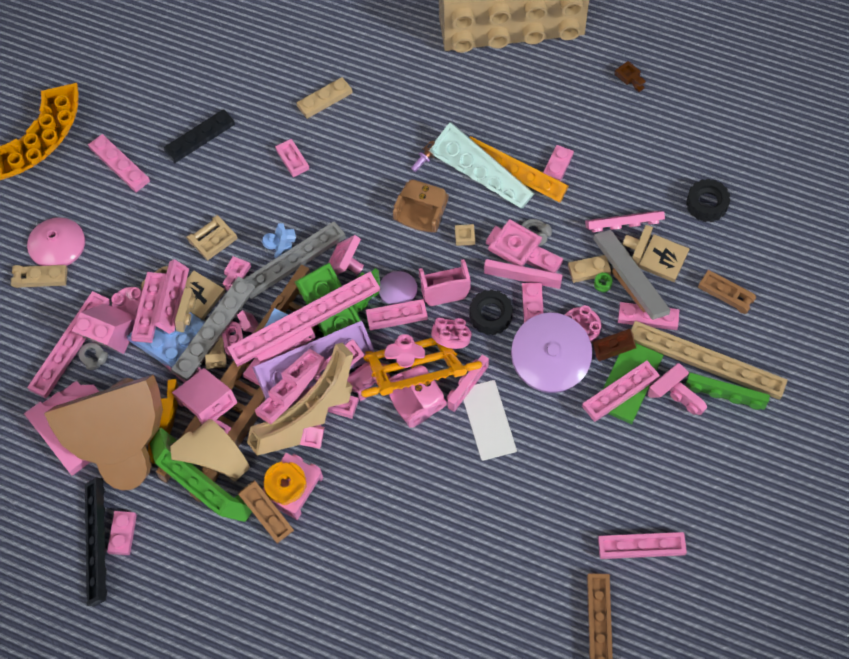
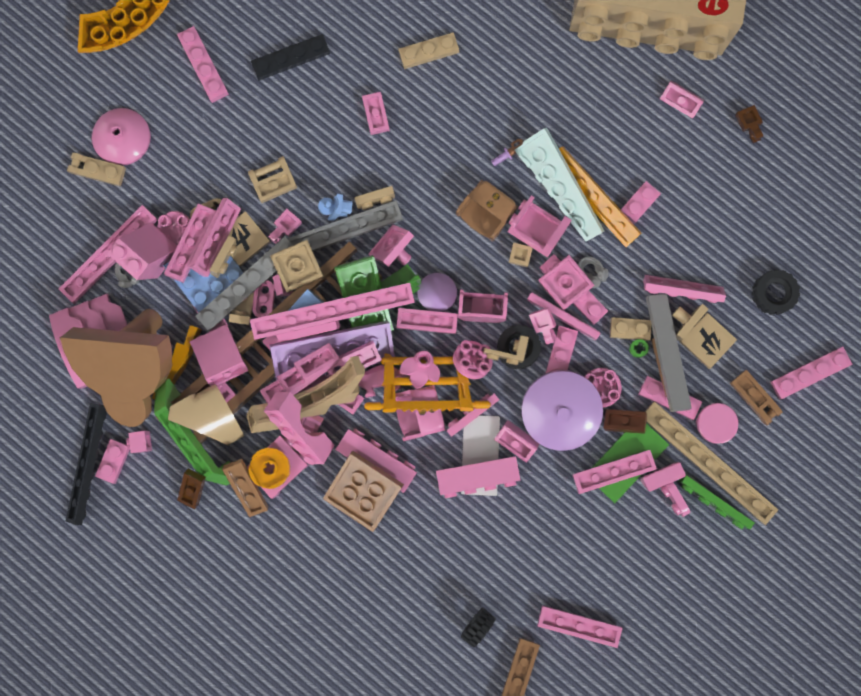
camera: 20 degrees right, 20 degrees up
(144, 504) = (139, 442): none -> bright pink plate
(210, 530) = (191, 488): none -> reddish brown plate
(257, 296) = (296, 266): none -> tan tile
(287, 419) = (285, 414): none -> bright pink arch
(313, 225) = (381, 196): none -> tan plate
(384, 480) = (363, 491): none -> medium nougat plate
(388, 450) = (371, 451): none -> bright pink brick
(472, 207) = (537, 227): none -> bright pink panel
(487, 317) = (519, 347): none -> tan bracket
(492, 435) = (478, 475): none -> bright pink brick
(506, 280) = (544, 322): none -> bright pink plate
(518, 396) = (516, 441): none -> bright pink slope
(541, 573) = (478, 627): none -> black tyre
(563, 75) = (682, 99): none -> bright pink slope
(700, 323) = (717, 423): none -> bright pink tile
(767, 258) = (811, 373): none -> bright pink plate

